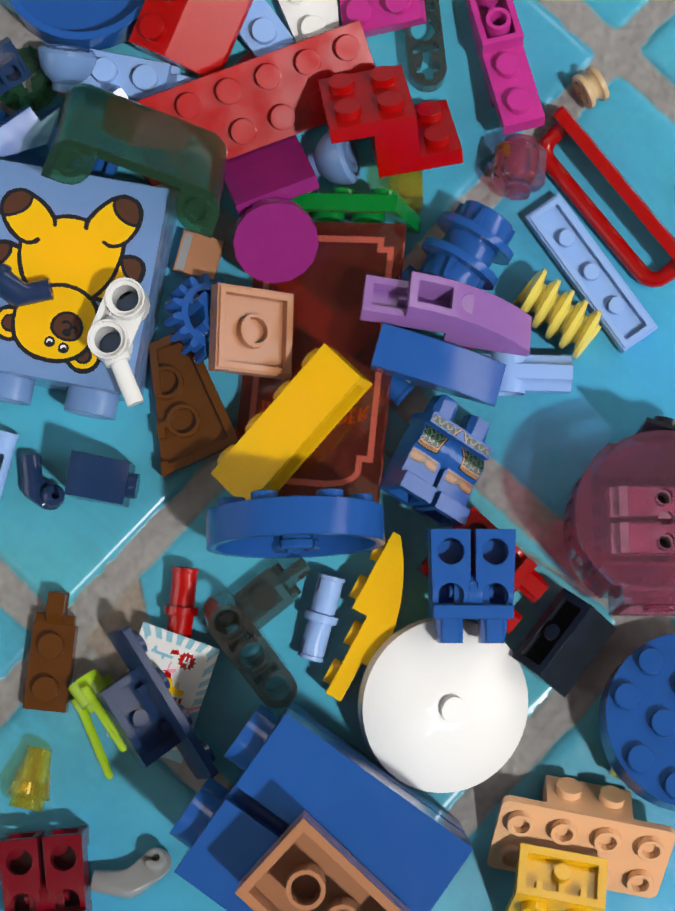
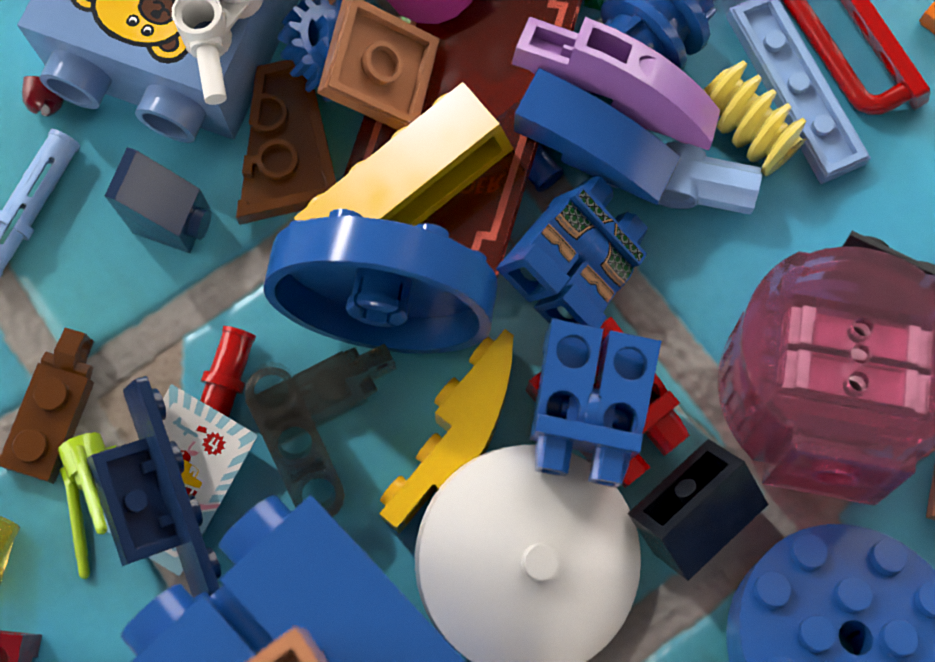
camera: 10 degrees right, 10 degrees down
(36, 487) = (85, 207): dark blue arm -> none
(321, 617) = (394, 423): light blue pin -> none

